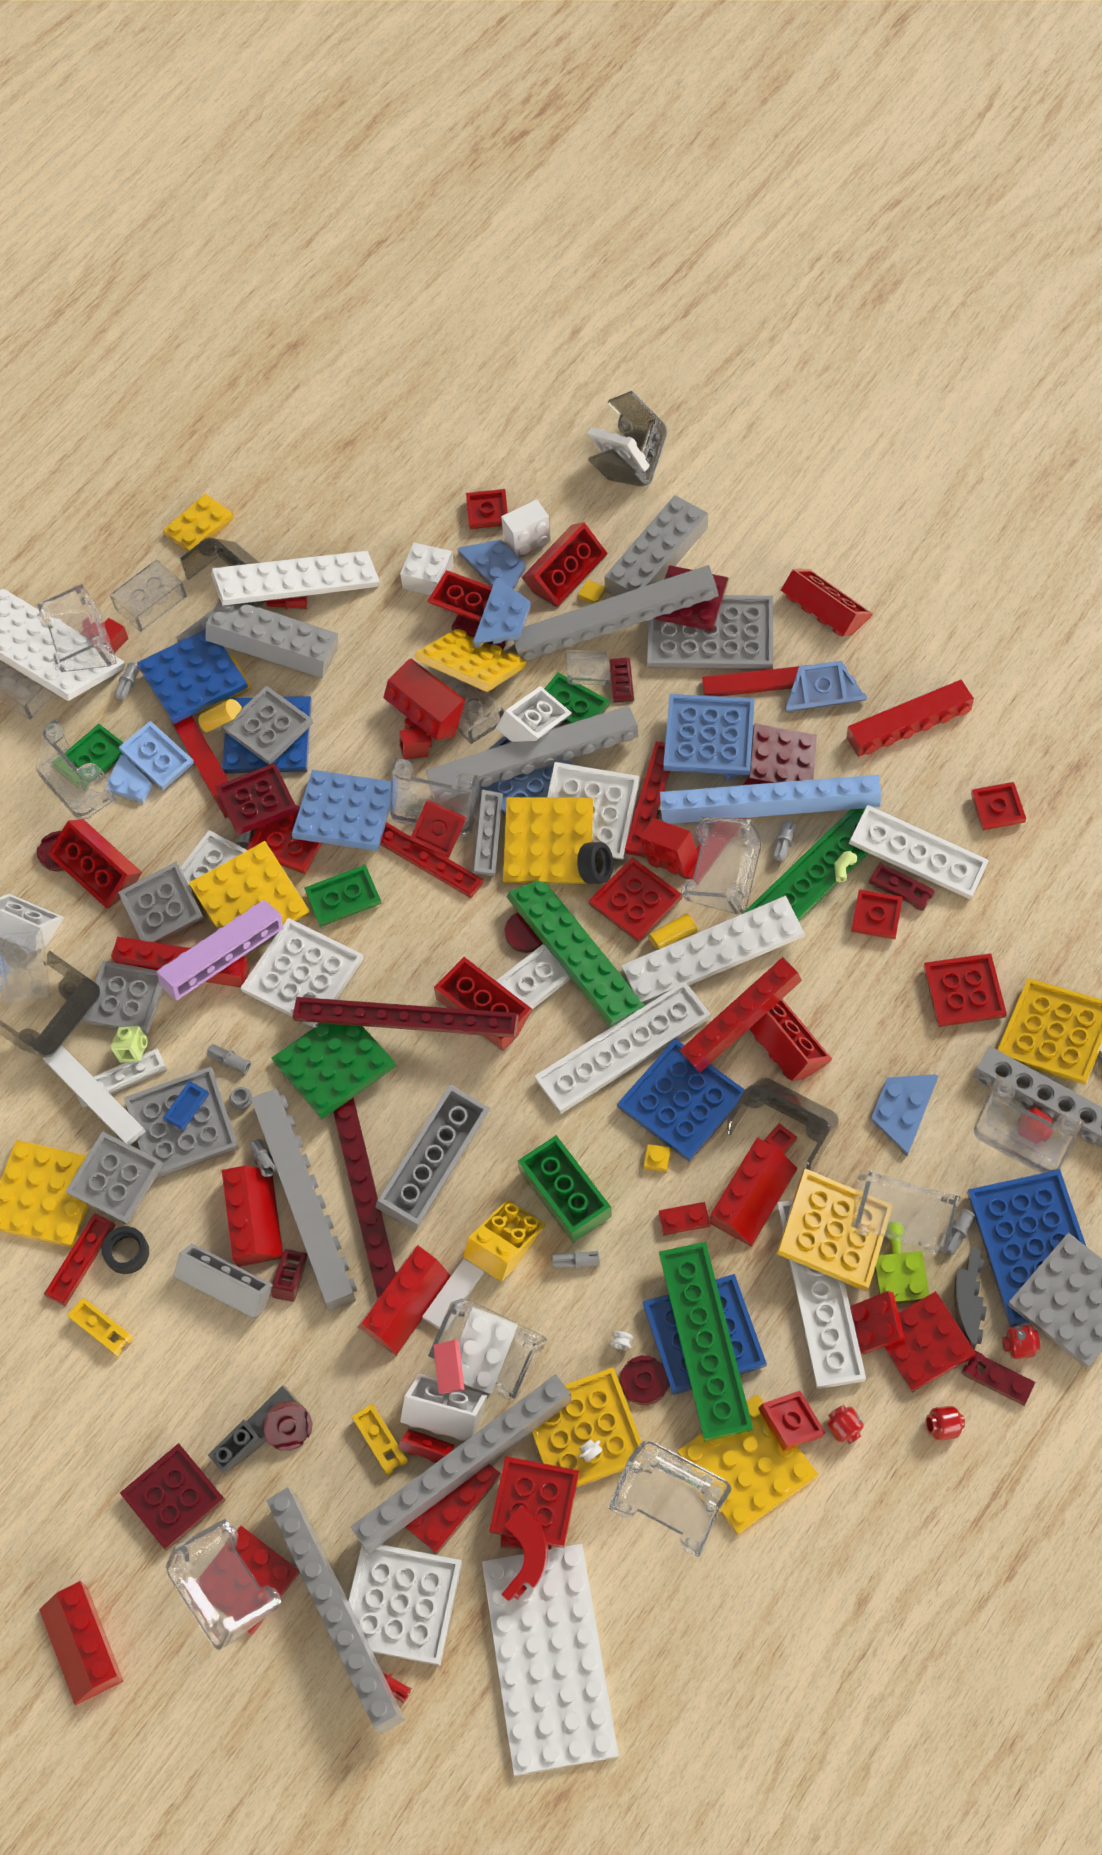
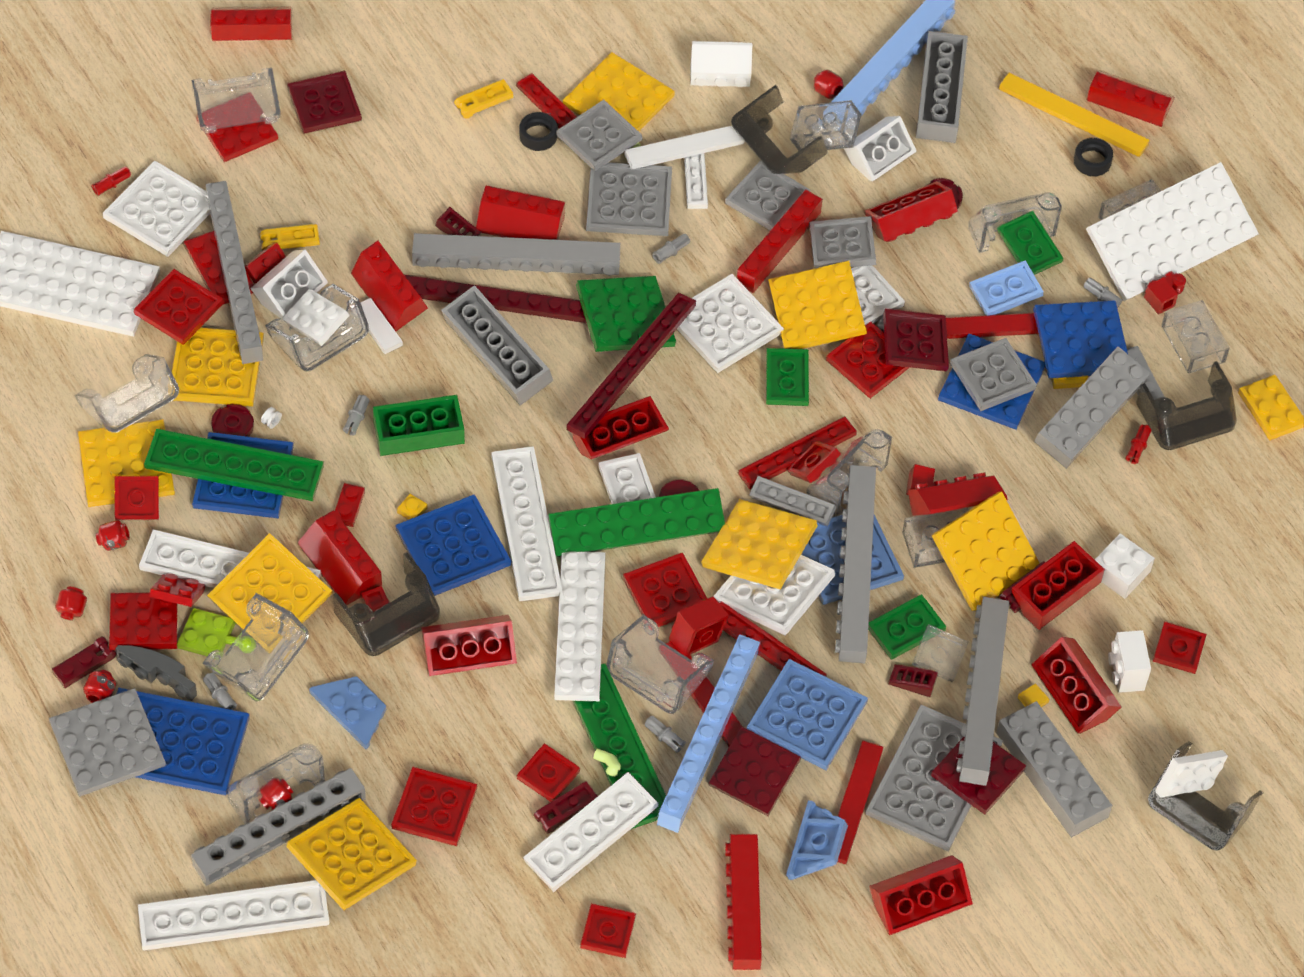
camera: 105 degrees right, 5 degrees down
(76, 631) = (1156, 257): clear windscreen -> none
(129, 781) = (988, 262): light blue wing -> none
(129, 1044) = (718, 182): yellowish green brick -> none
(186, 1105) = (639, 201): blue tile -> none
(219, 715) = (1022, 342): yellow brick -> none
(219, 950) = (764, 255): lavender brick -> none
(222, 1280) = (473, 178): light grey brick -> none
(240, 1098) = (630, 245): light grey plate -> none
(247, 1434) = (342, 162): dark grey slope -> none
(262, 1158) = (553, 234): light grey axle -> none
(287, 1425) = (332, 180): tile -> none
(294, 577) = (1152, 446): white plate -> none
(335, 1611) = (178, 159): light grey brick -> none
(343, 810) = (873, 398): medium blue plate -> none
(448, 1367) = (312, 286): coral tile -> none
(494, 561) = (1098, 630): medium blue wing -> none
(503, 615) = (1023, 591): medium blue wing -> none
(503, 1240) = (402, 372): yellow slope -> none
(532, 717) = (891, 572): white slope -> none
(535, 1546) = (143, 285): red arch -> none
(586, 862) = (701, 570): black tyre -> none
(590, 1450) = (194, 354): white plate -> none
(673, 932) = (617, 605): yellow brick -> none
(741, 1014) = (494, 598): red brick -> none

